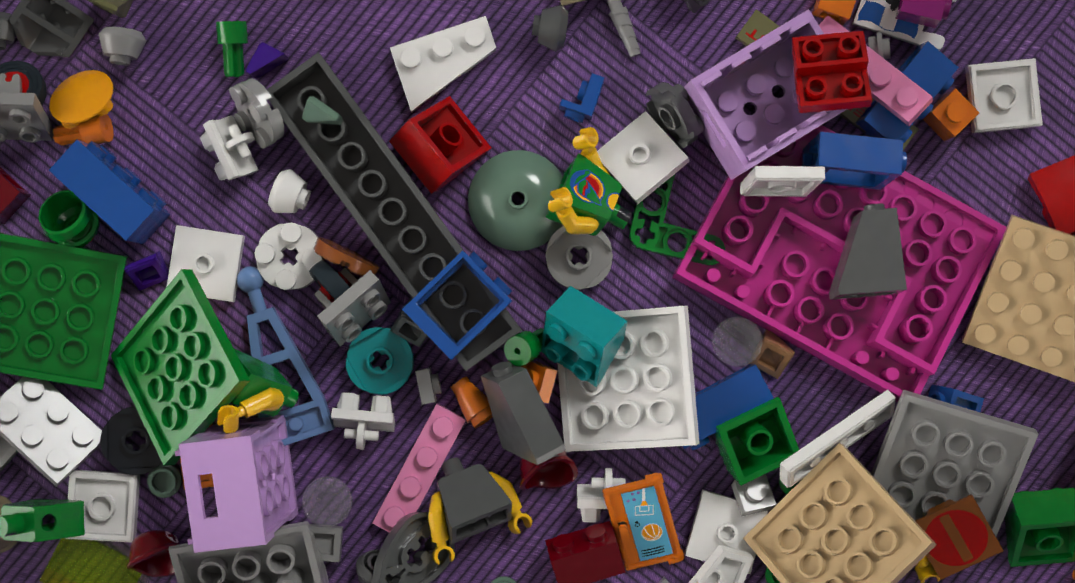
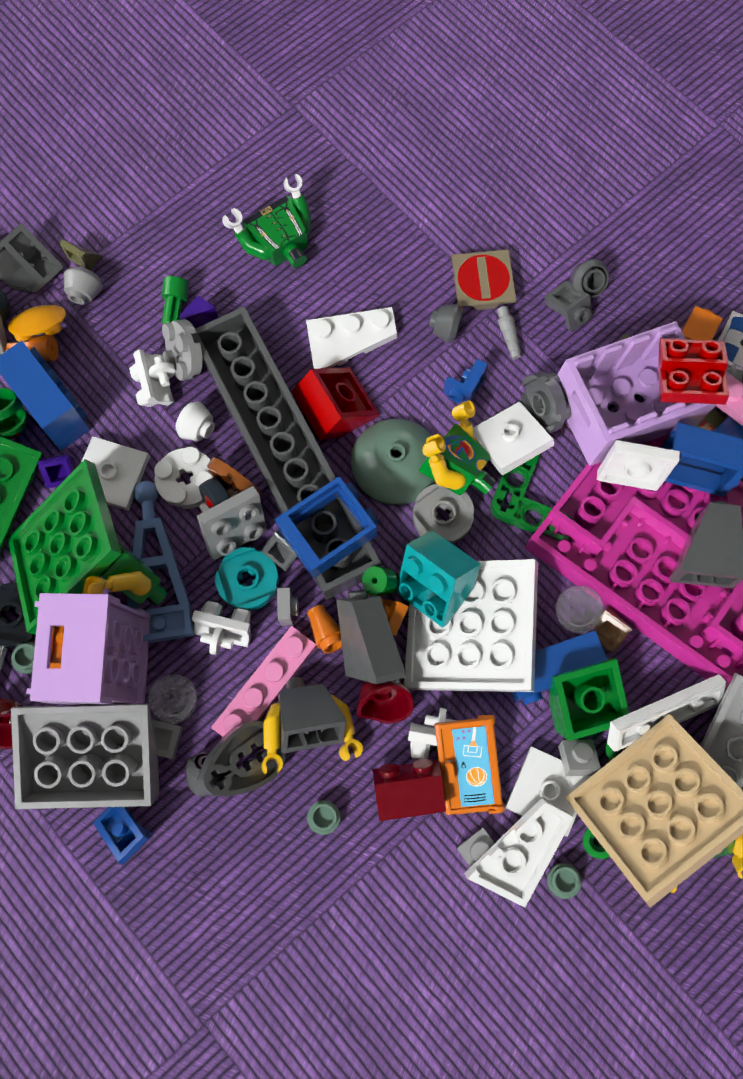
camera: 15 degrees right, 15 degrees down
(318, 112) = (235, 350): sand green slope -> none

